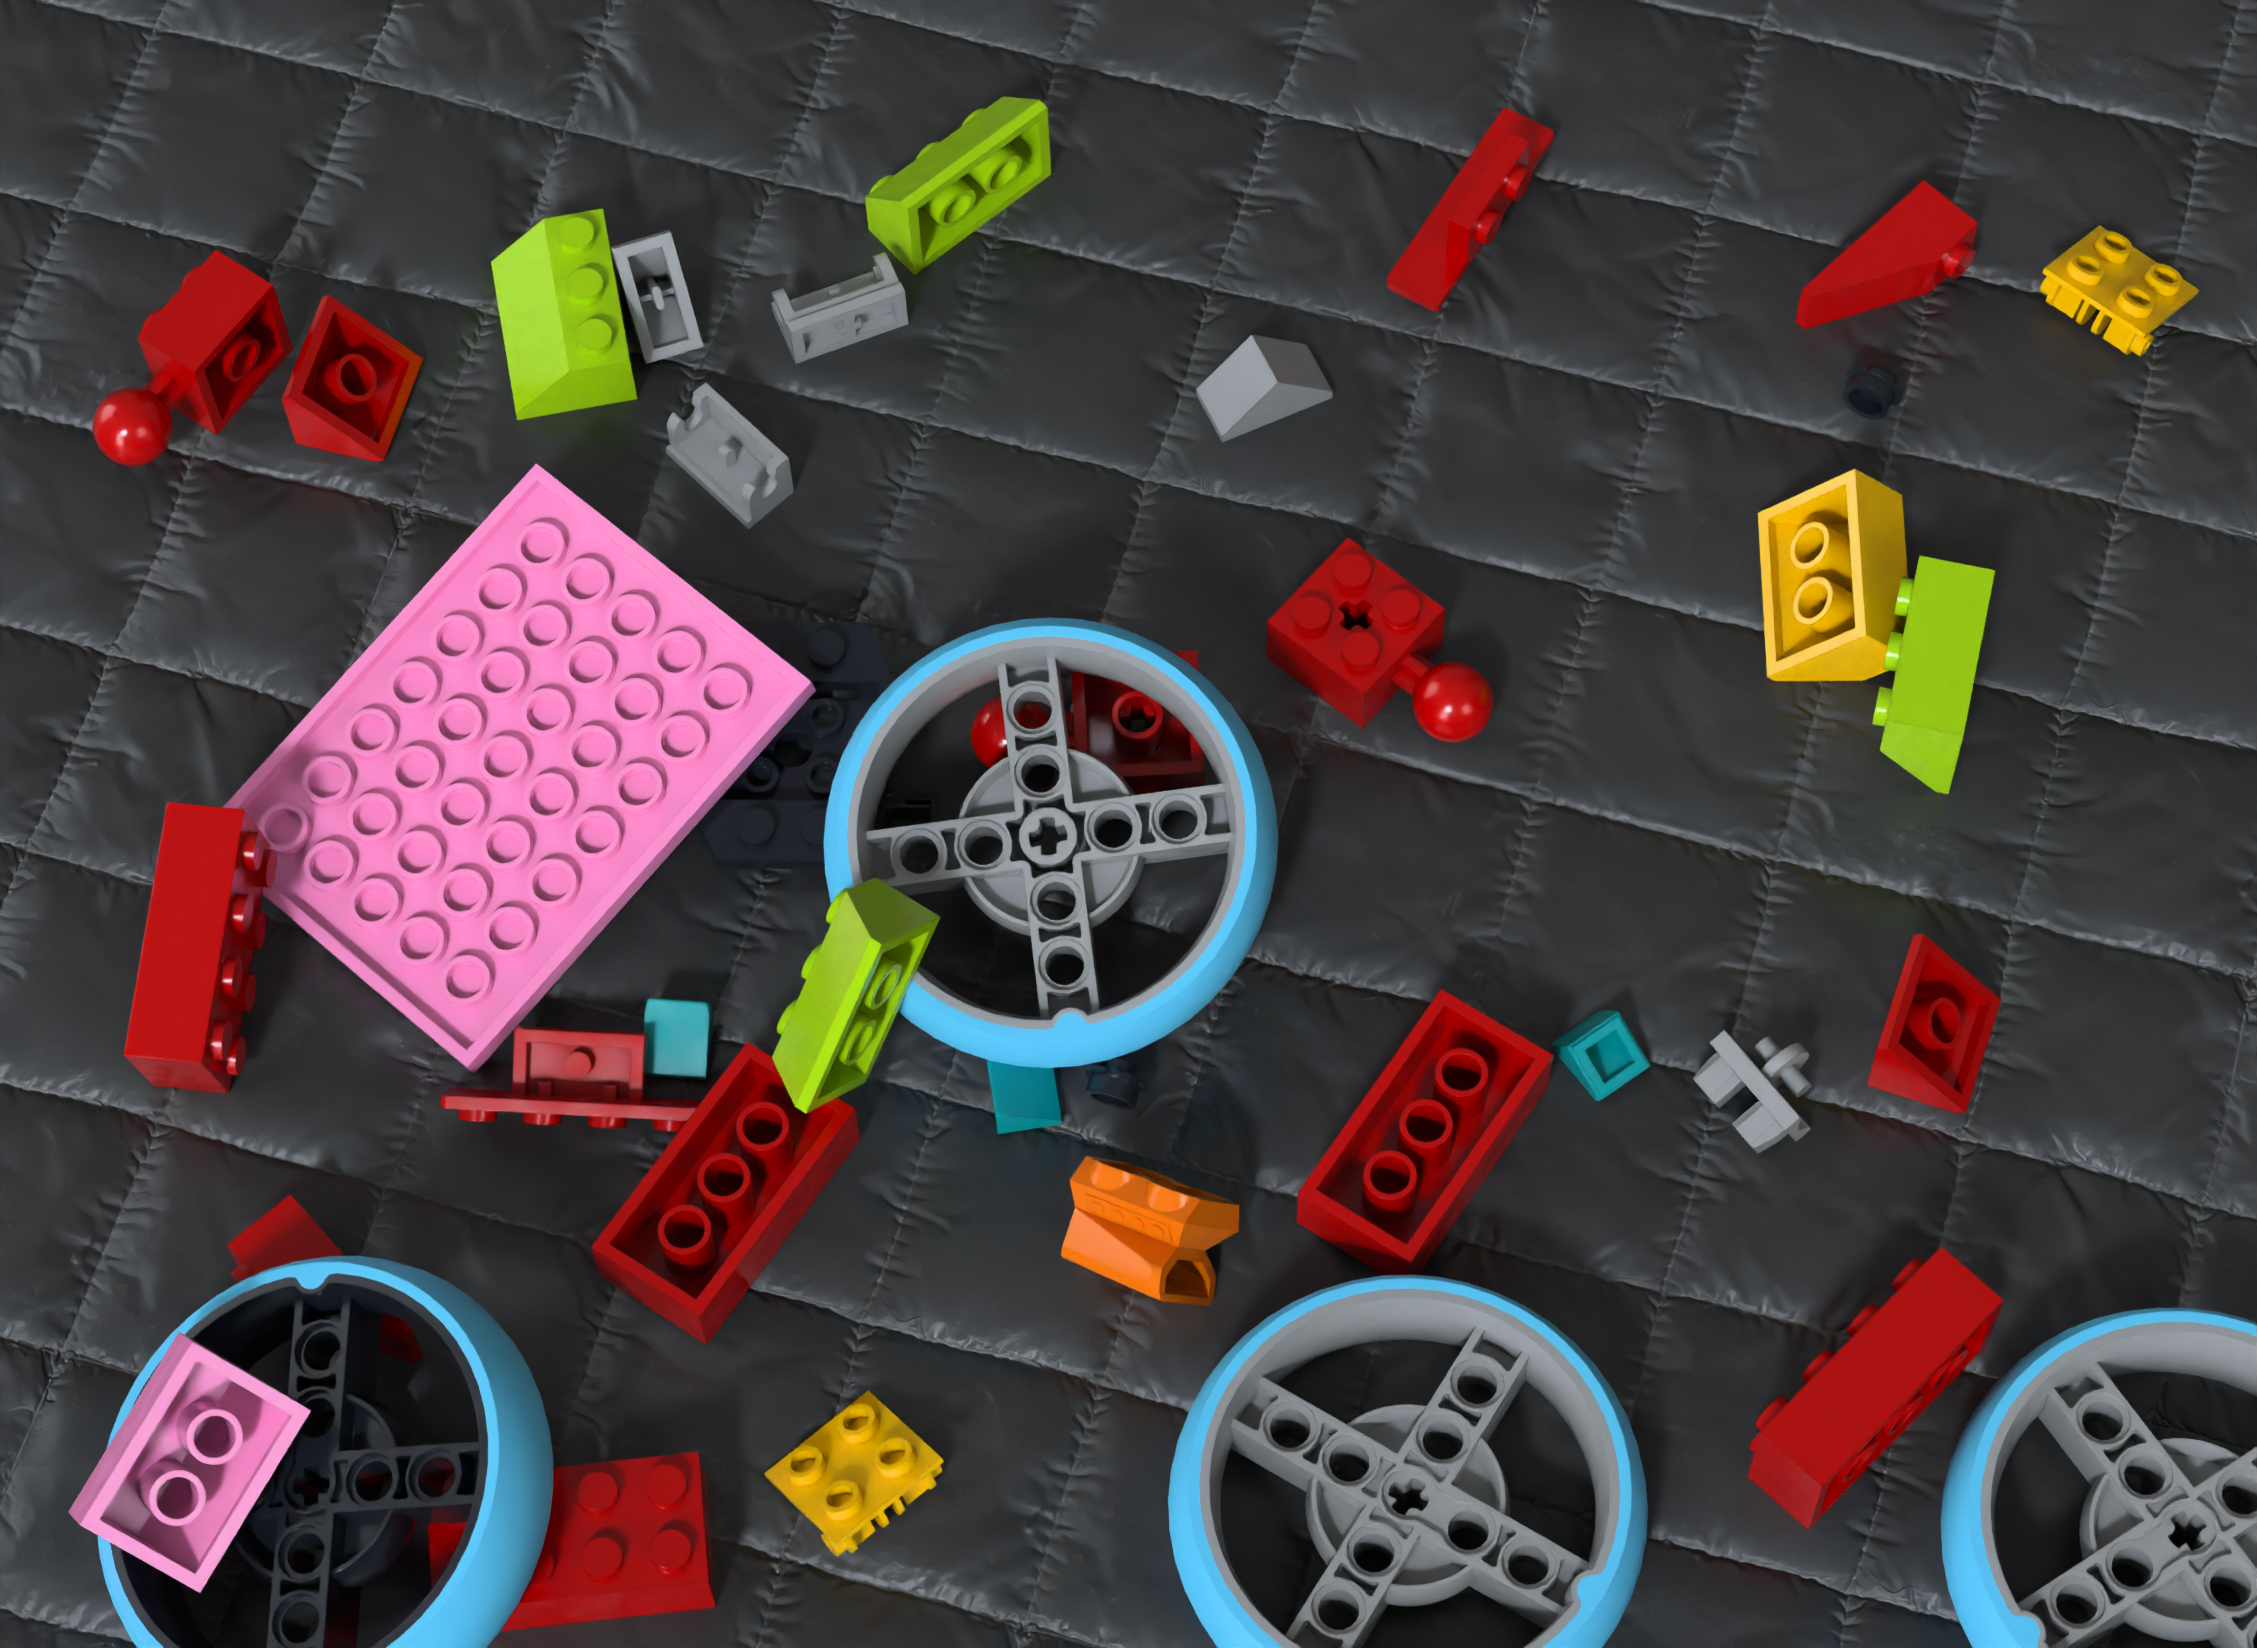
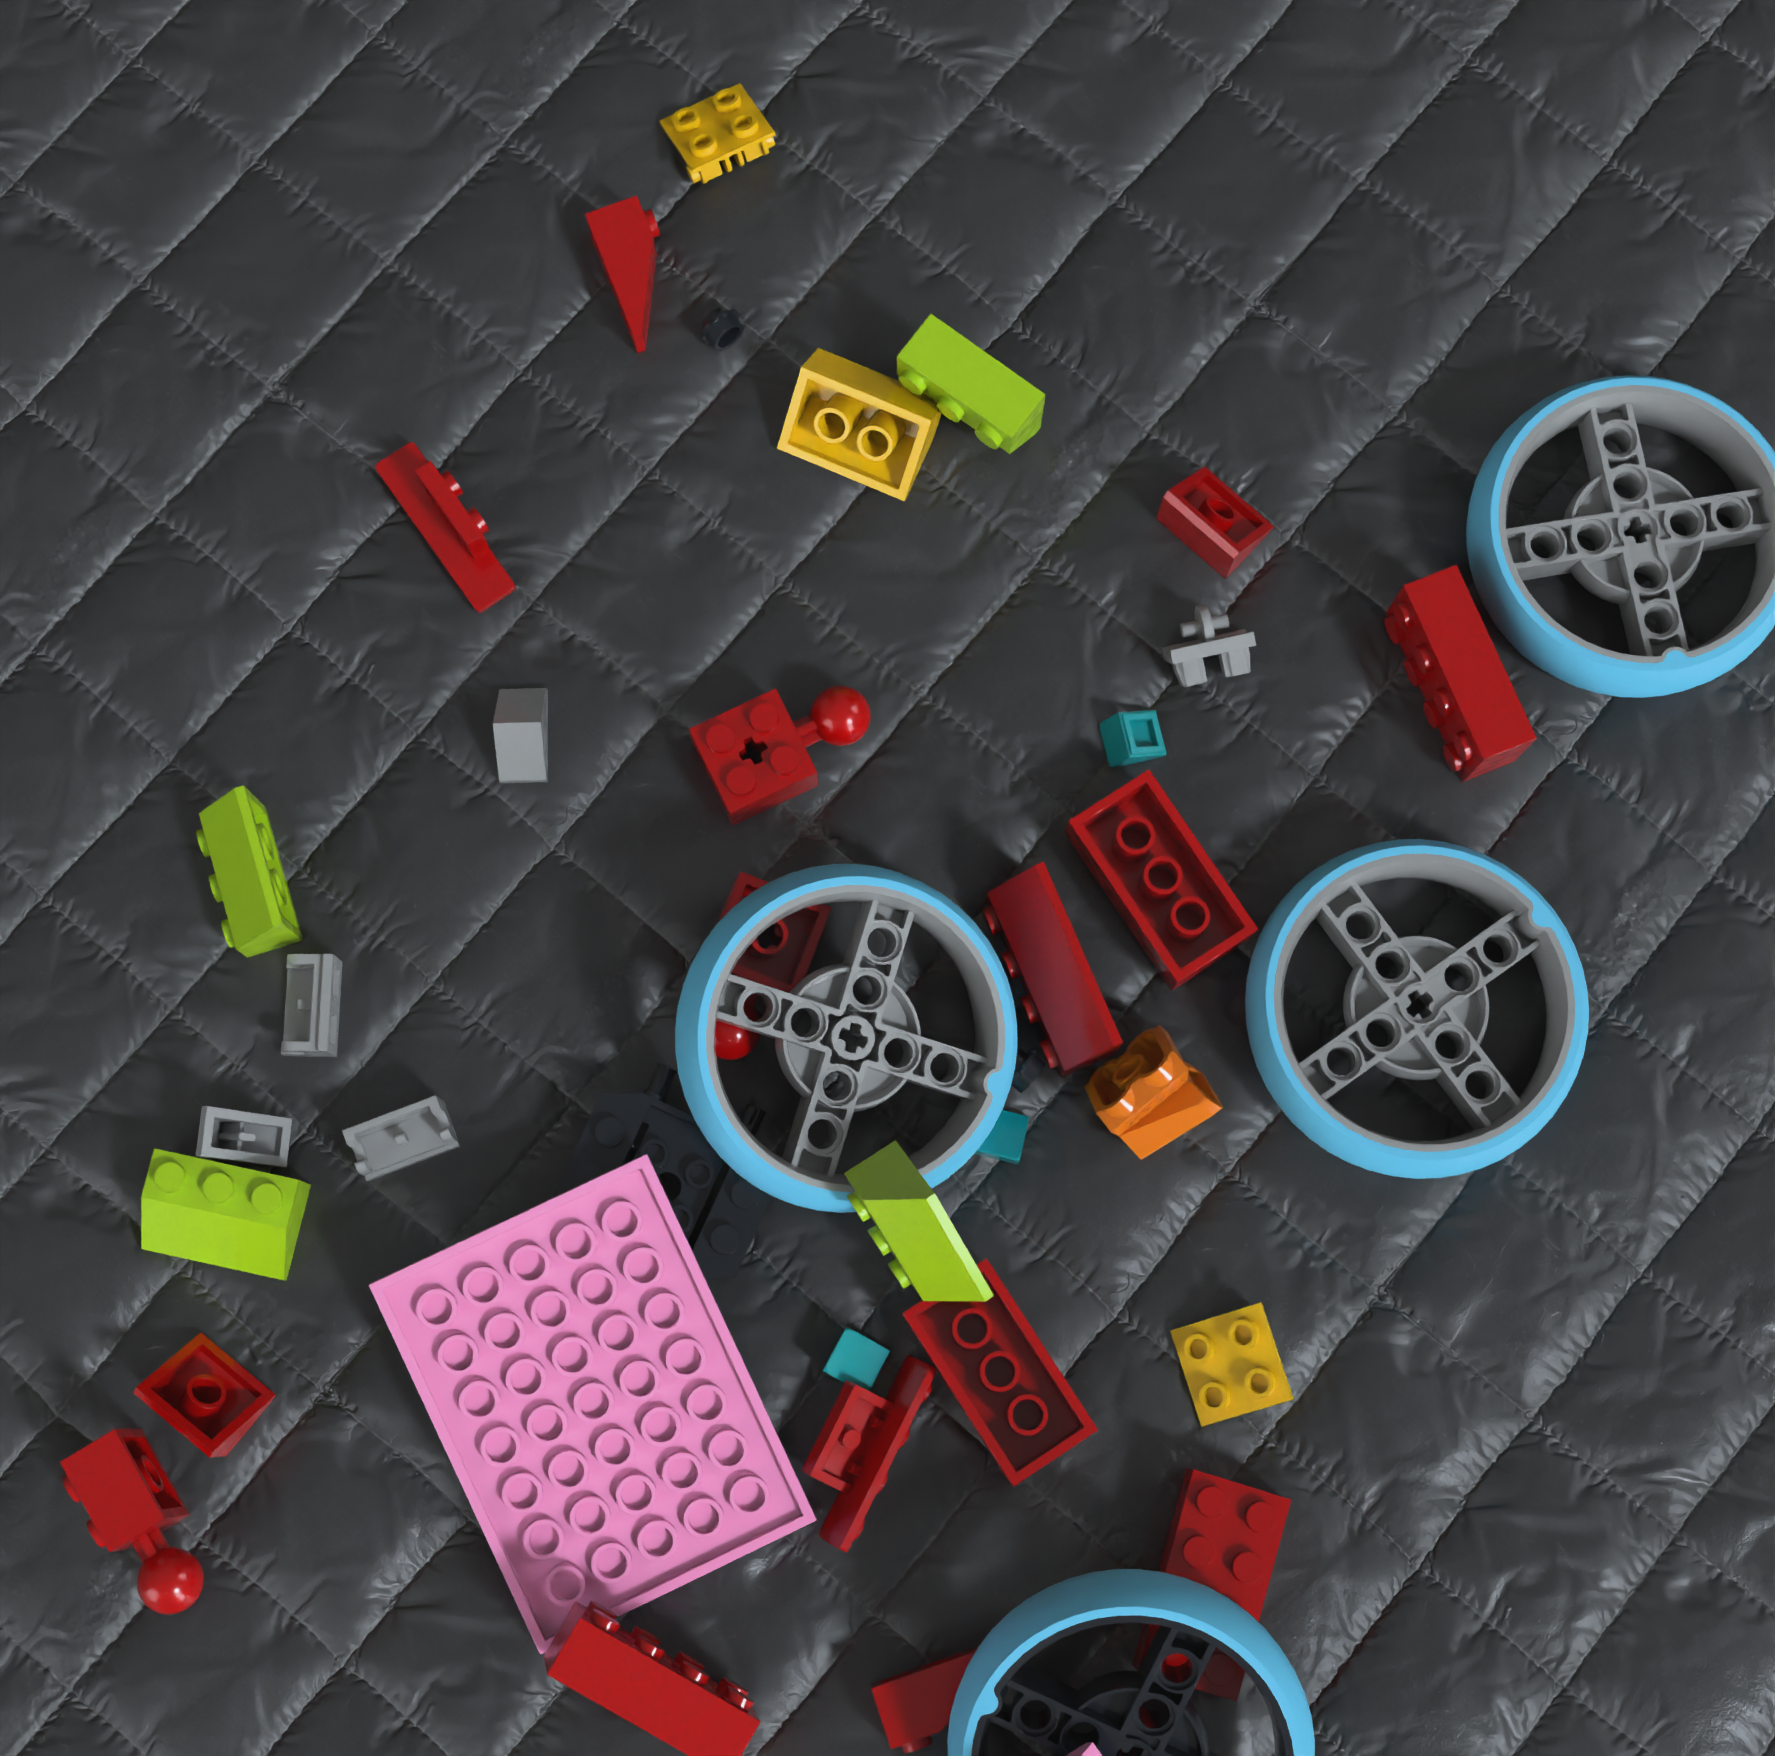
camera: 70 degrees left, 15 degrees up
(1250, 1062) = (1052, 971): none -> red slope

